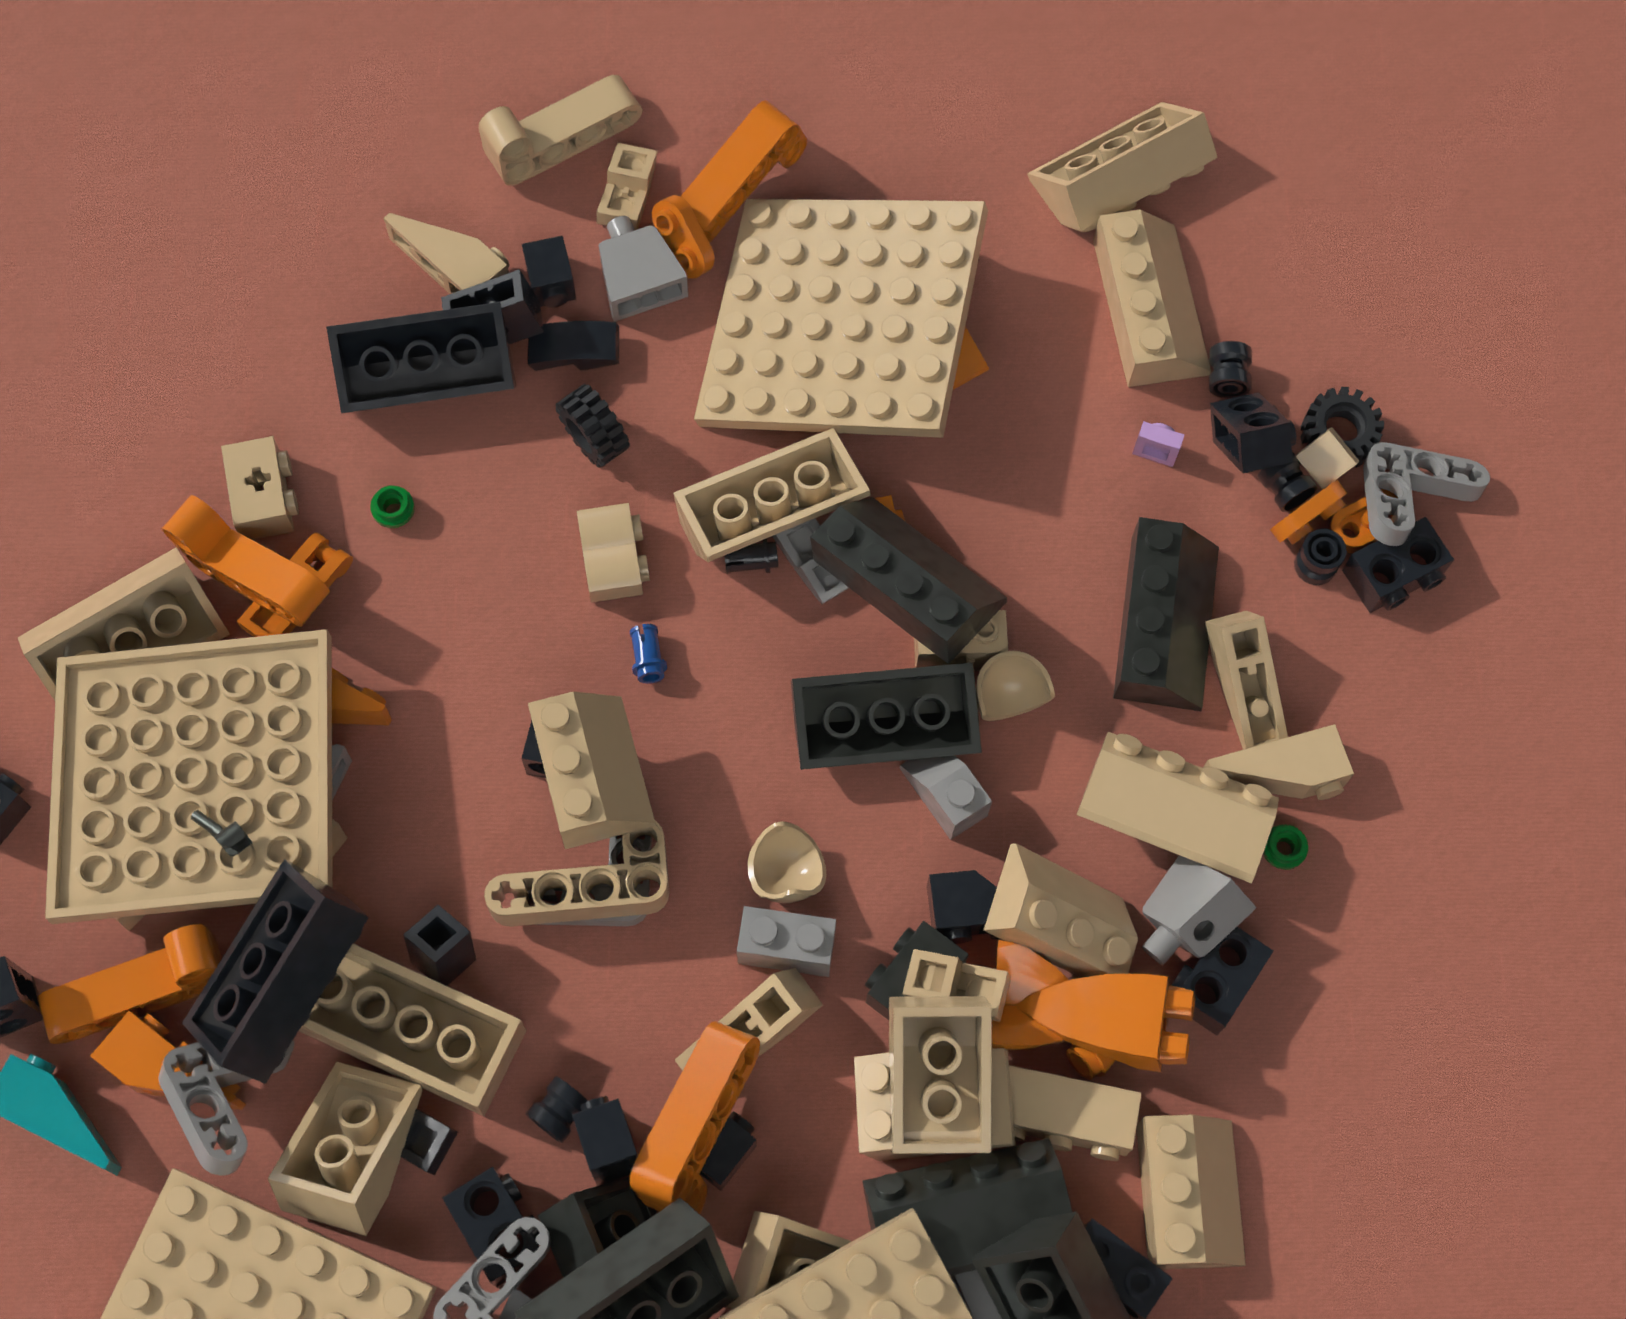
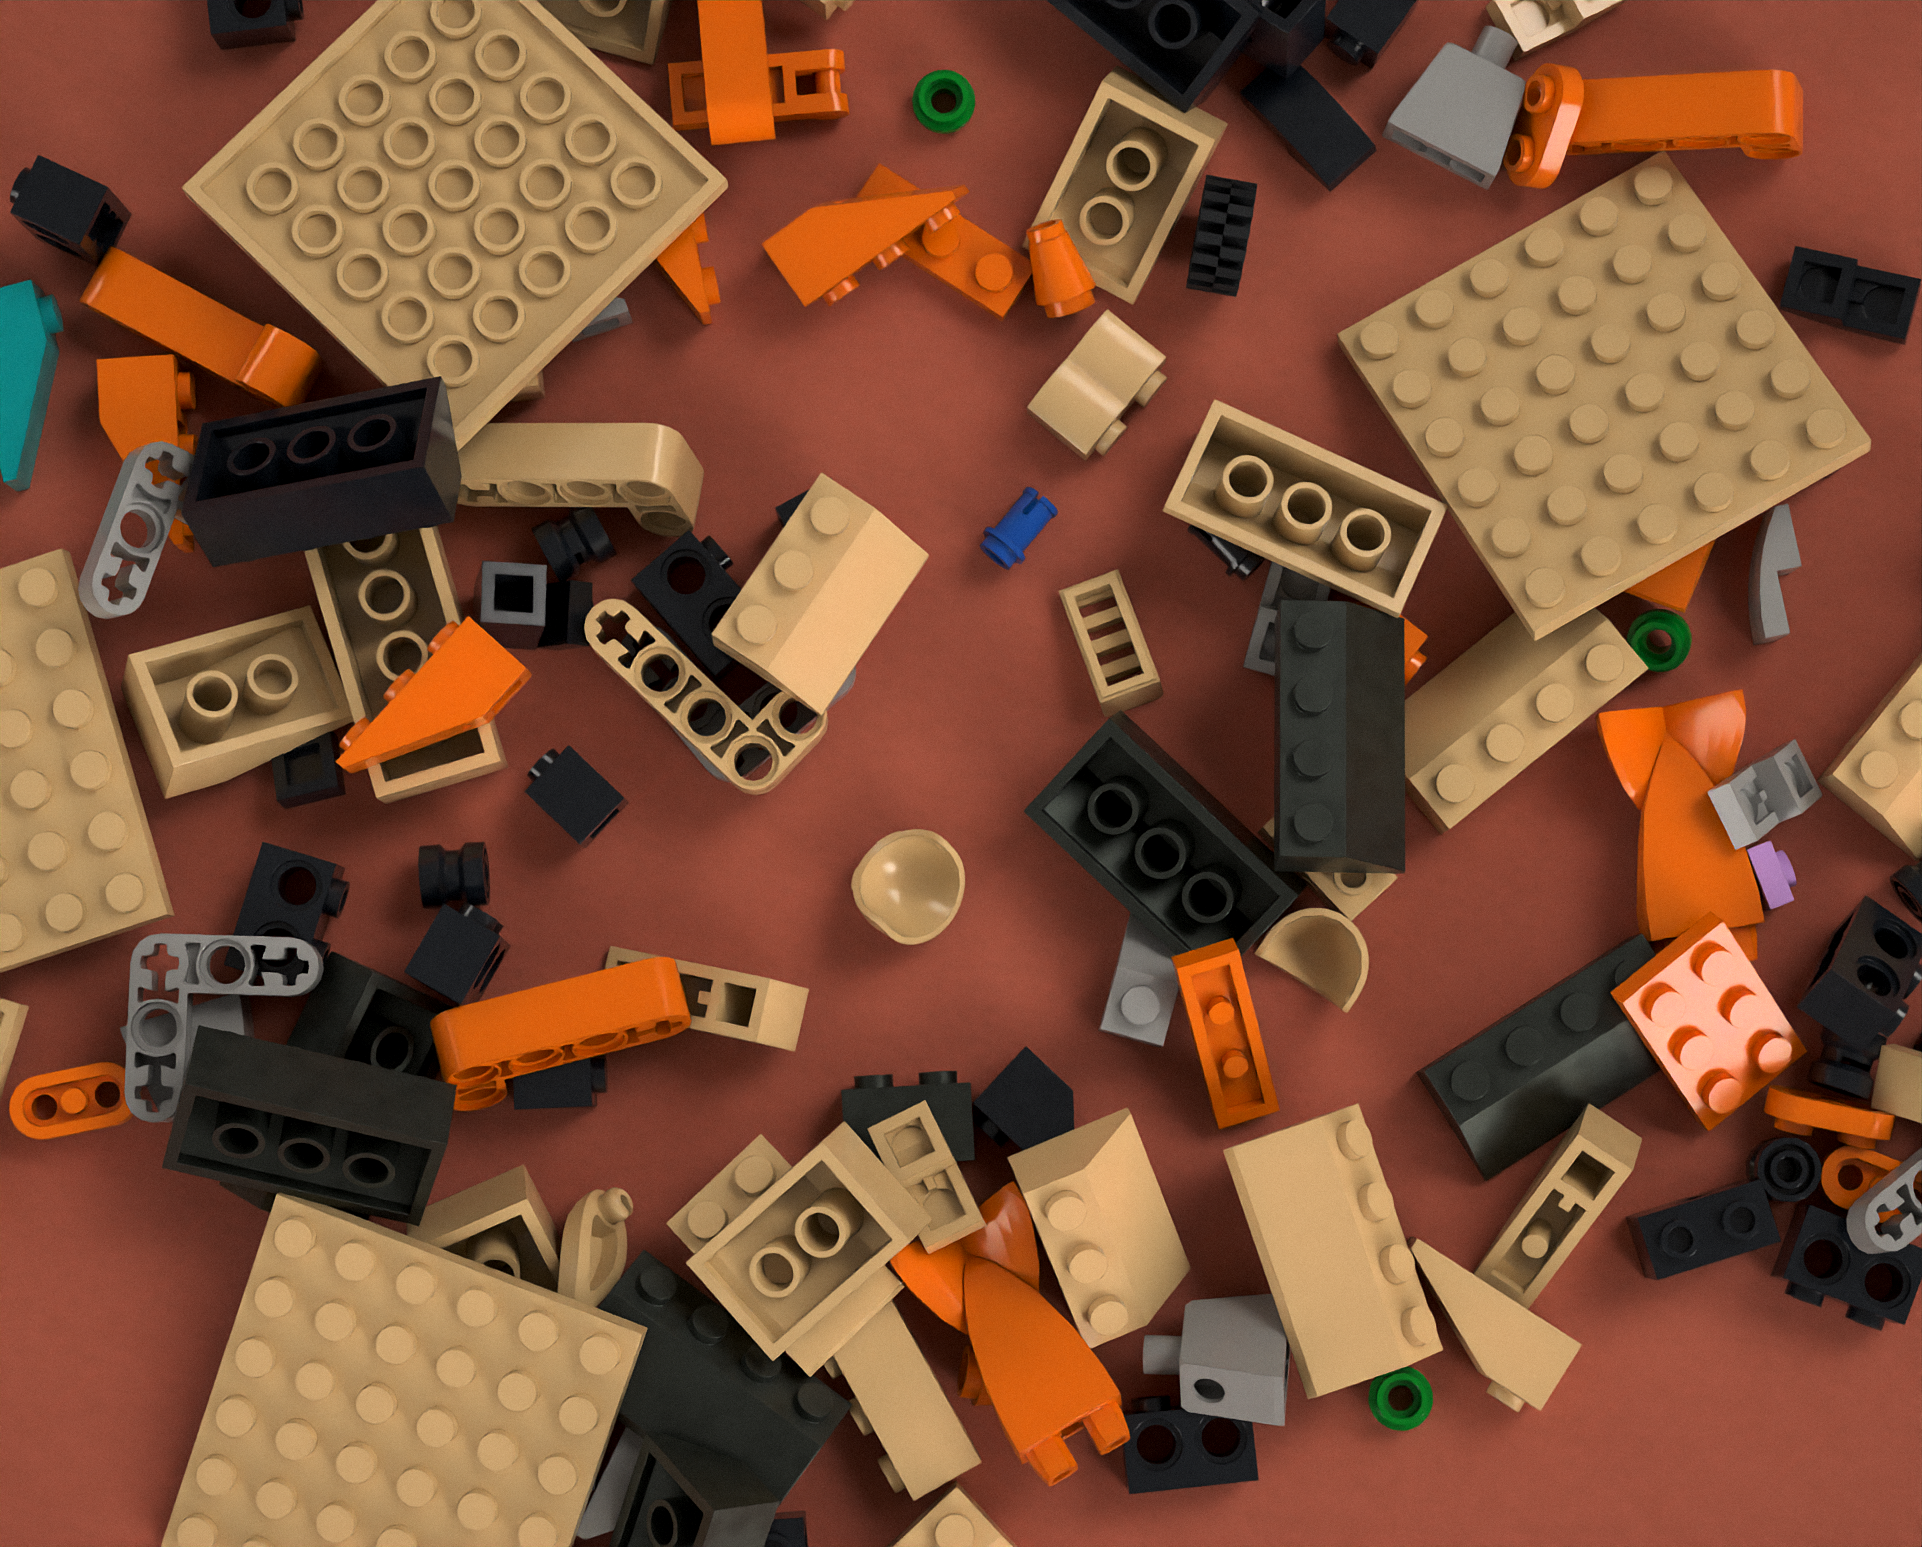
camera: 50 degrees right, 15 degrees up
(232, 838) = (417, 301): pearl dark grey hand -> none
(406, 837) = (585, 466): none -> tan beam
(413, 607) = (843, 236): none -> orange slope
(438, 884) = (573, 542): none -> black wheel
(460, 1010) = (450, 694): none -> orange slope
(462, 569) = (961, 254): none -> orange plate
(478, 921) = (566, 614): none -> black plate
(521, 455) = (1129, 179): none -> tan slope
(533, 520) = (1058, 270): none -> orange cone
(536, 852) = (693, 613): none -> black brick
(574, 1004) = (574, 794): none -> black brick
(784, 672) = (1131, 691): none -> tan slope
(786, 941) = (828, 955): light grey brick -> none
(835, 1208) = (594, 1246): none -> tan arm
(900, 176) = (1850, 296): none -> black slope
(962, 487) = (1507, 708): none -> tan slope
(995, 311) = (1772, 556): none -> light grey slope
(1003, 400) = (1660, 658): none -> green plate
(1012, 765) = (1225, 1033): none -> orange plate
(1115, 466) = (1685, 857): none -> orange hips
(1116, 408) = (1765, 794): none -> light grey slope
(1212, 524) = (1709, 1021): none -> plate
(1320, 619) = (1703, 1229): none -> black brick

